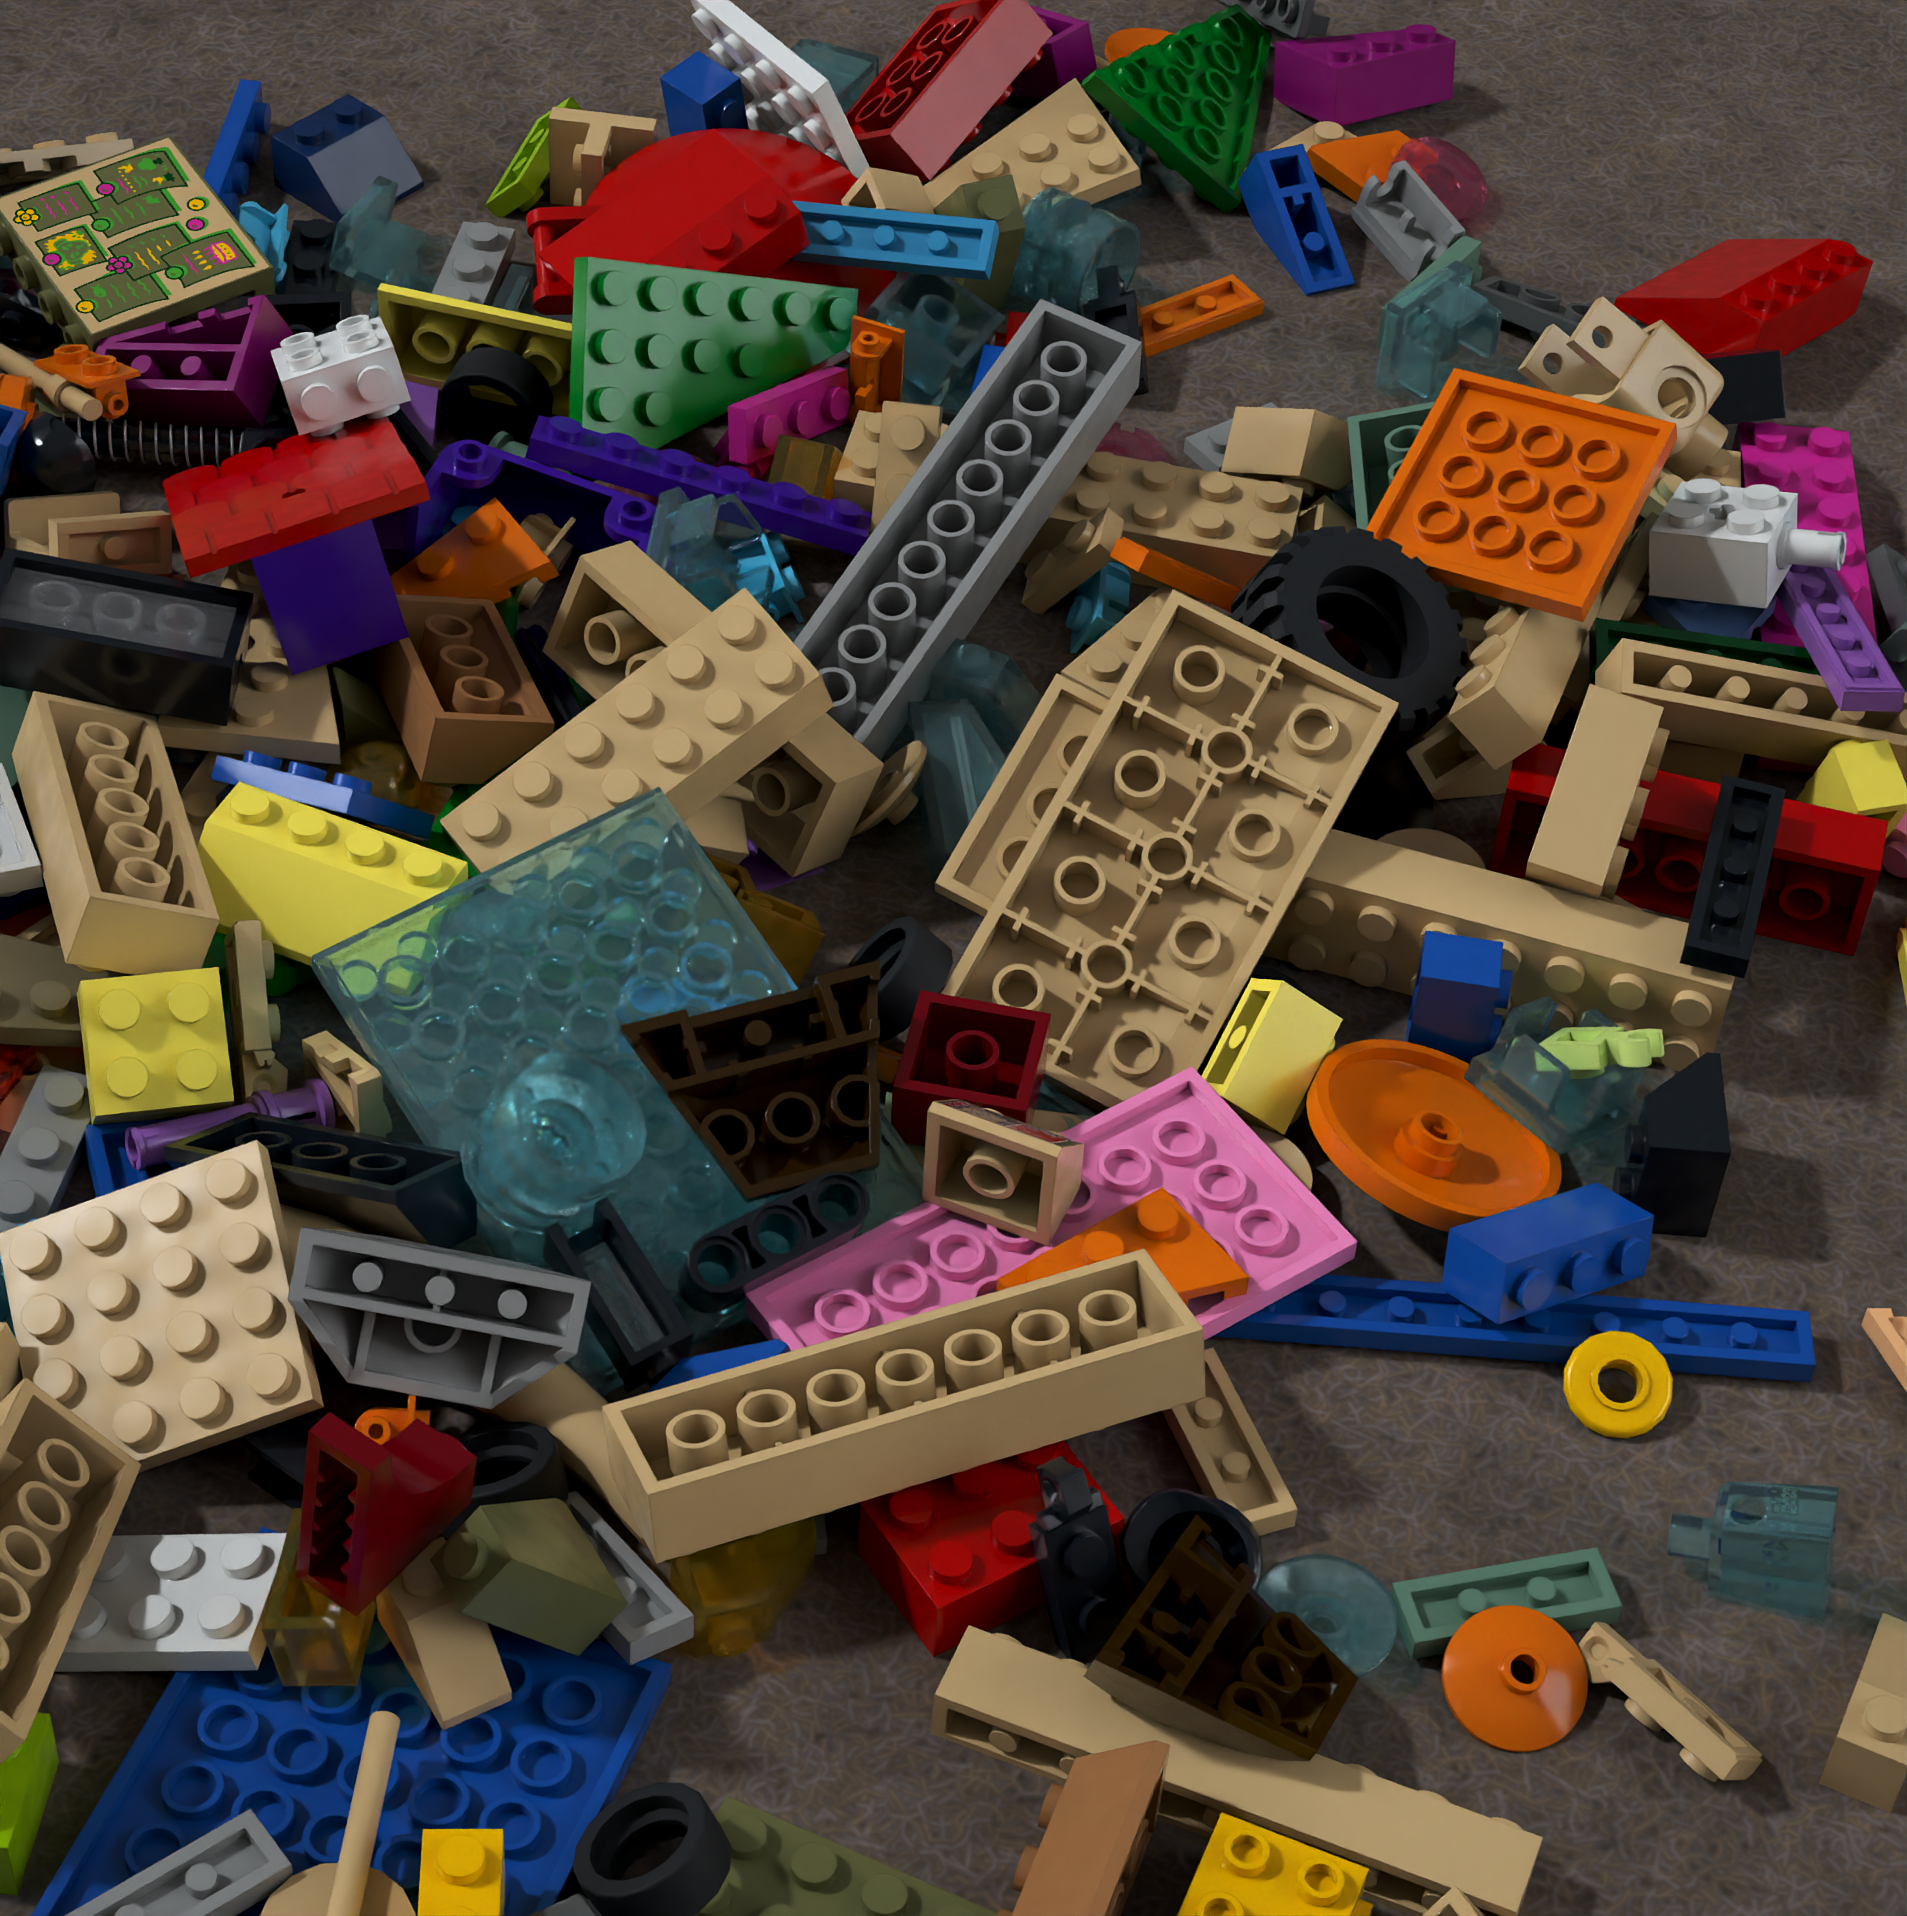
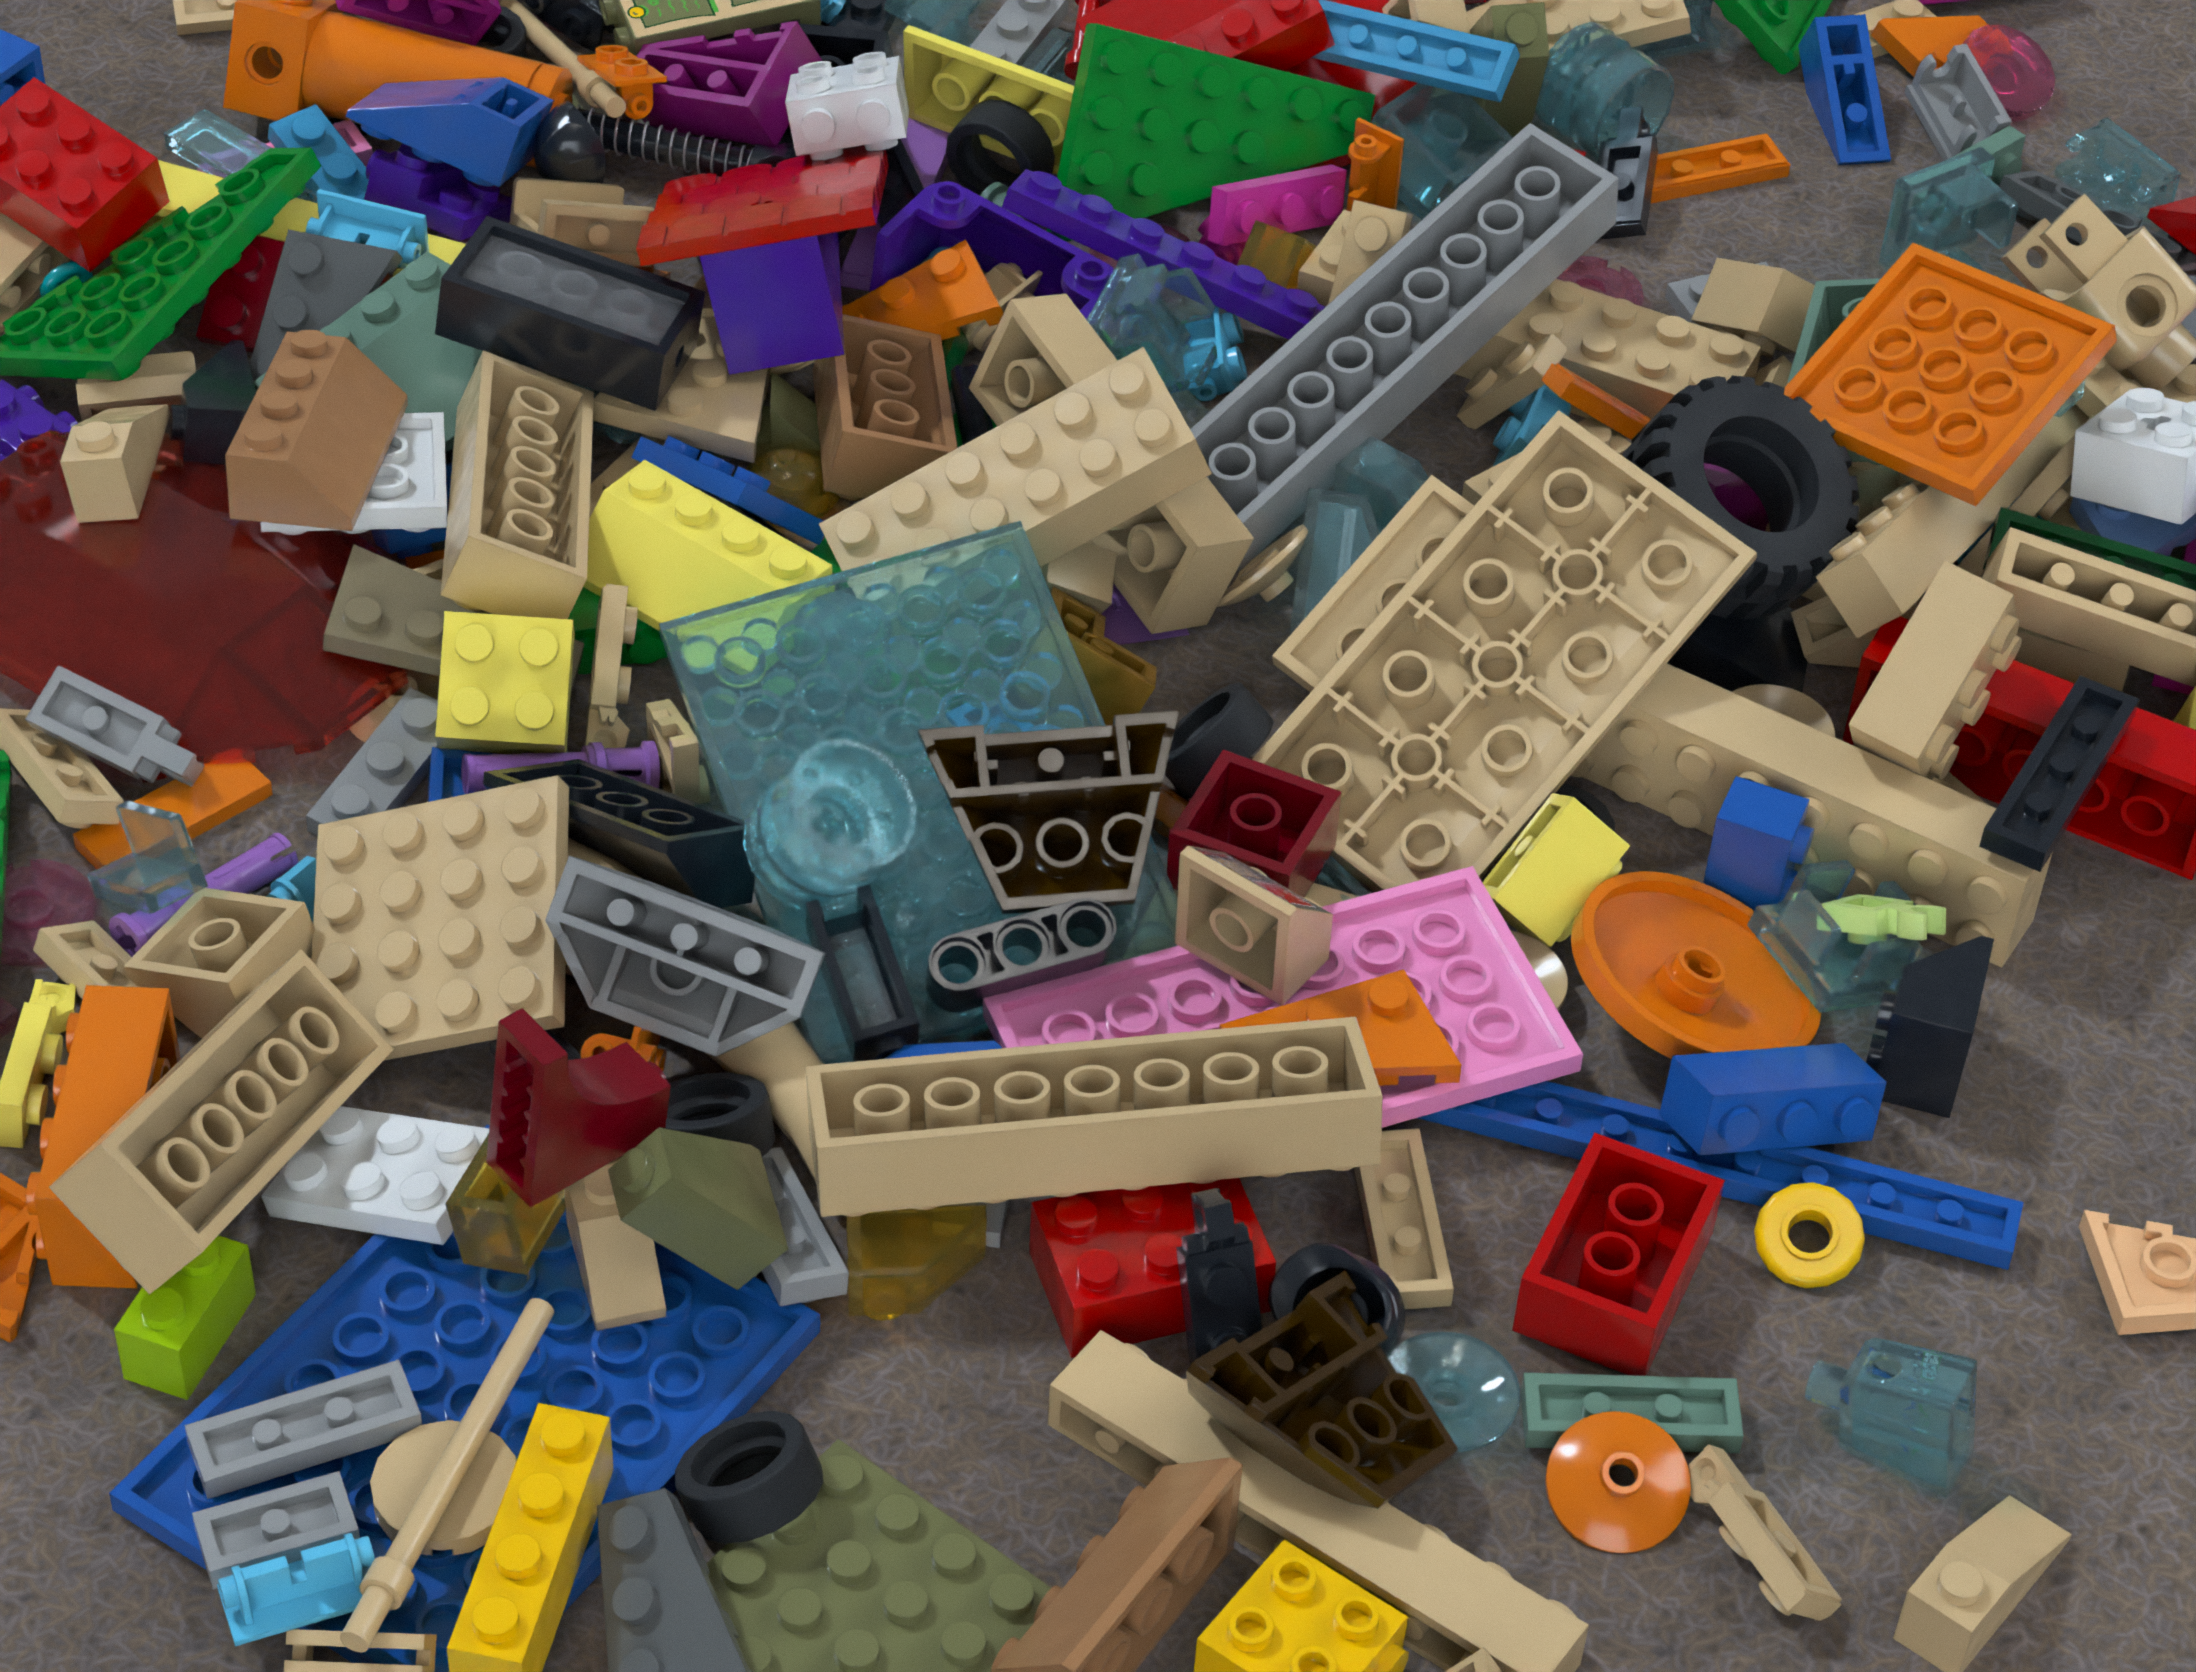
camera: 15 degrees right, 0 degrees up
(1449, 1444) = (1618, 1256): none -> red brick
(1572, 264) = (2118, 171): none -> clear light blue hinge

